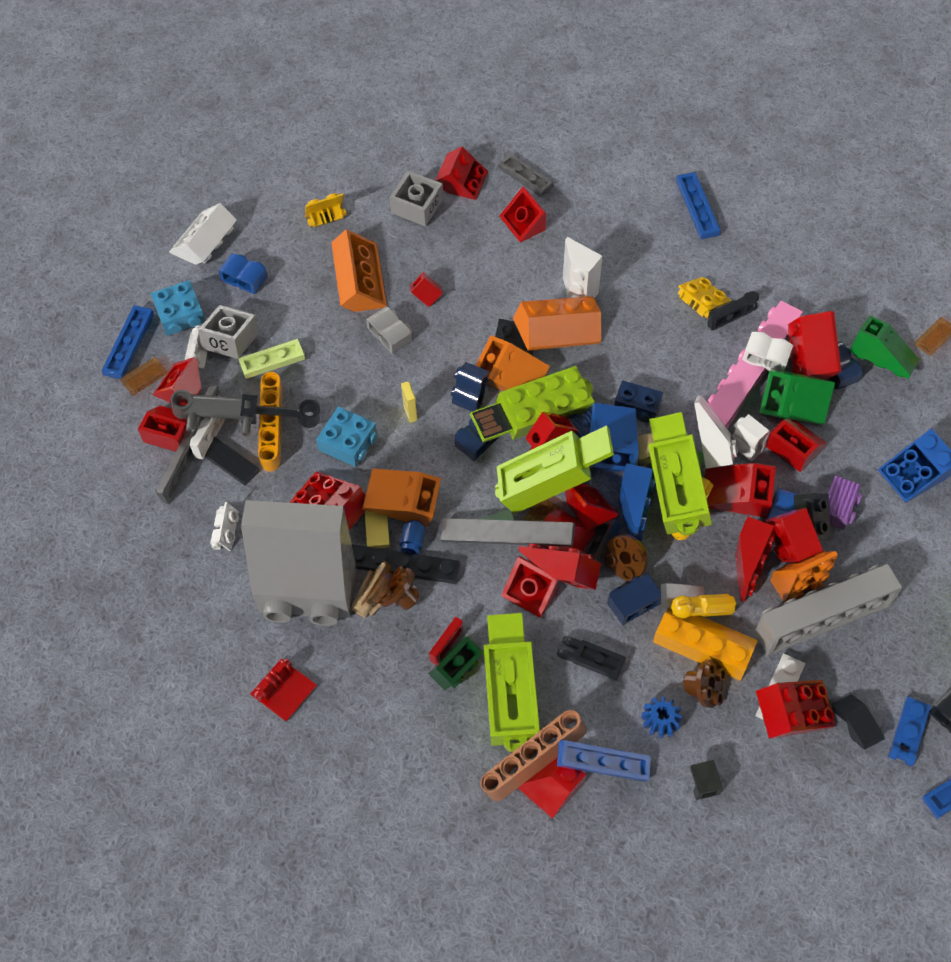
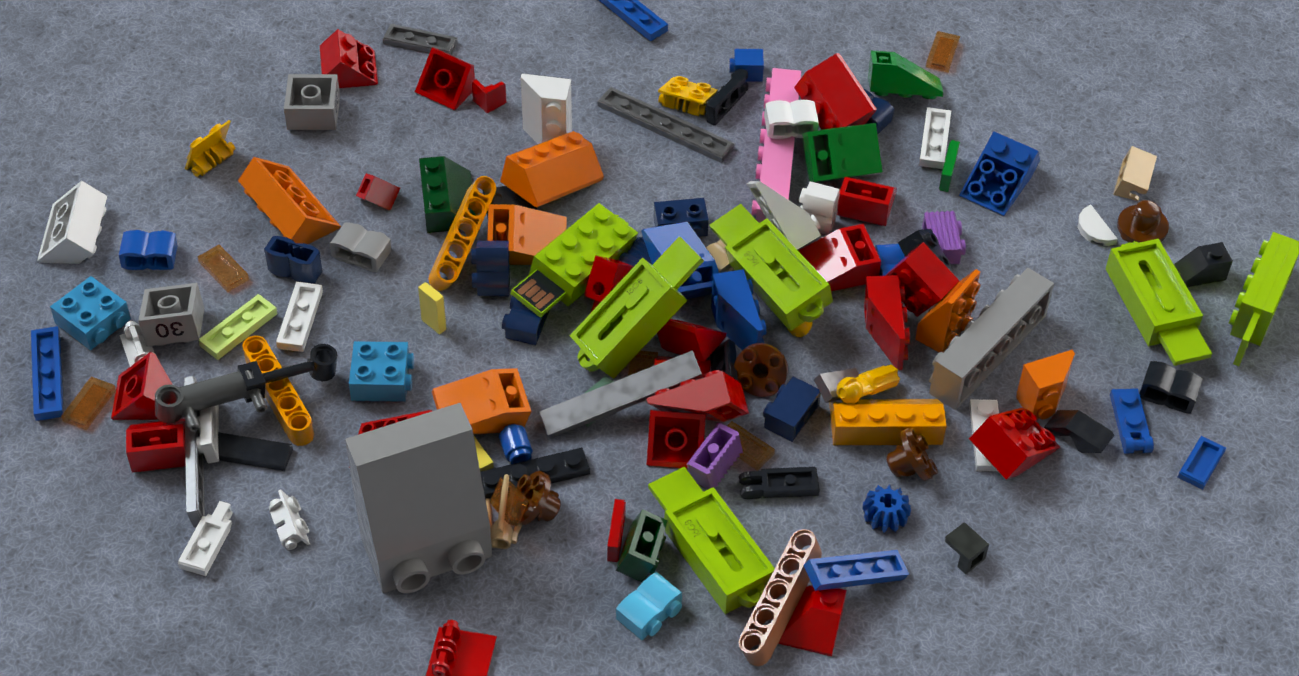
camera: 30 degrees left, 10 degrees down
(162, 517) = (207, 540): none -> white hinge
(287, 307) = (223, 268): none -> clear orange tile
(317, 368) = (299, 316): none -> white plate
(334, 322) = (293, 260): none -> dark blue brick
(436, 714) = (649, 606): none -> medium azure brick
(473, 311) = (443, 190): none -> dark green slope
(473, 344) = (455, 241): none -> light orange beam
(550, 614) = (715, 456): none -> medium lavender brick
(551, 241) = (489, 97): none -> red panel
(583, 612) = (755, 450): none -> clear orange tile
(673, 316) = (666, 124): none -> flat silver tile
(766, 287) = (750, 60): none -> blue brick
(849, 670) = (1044, 383): none -> orange slope
(881, 441) = (949, 166): none -> green tile
(884, 411) = (935, 138): none -> white plate

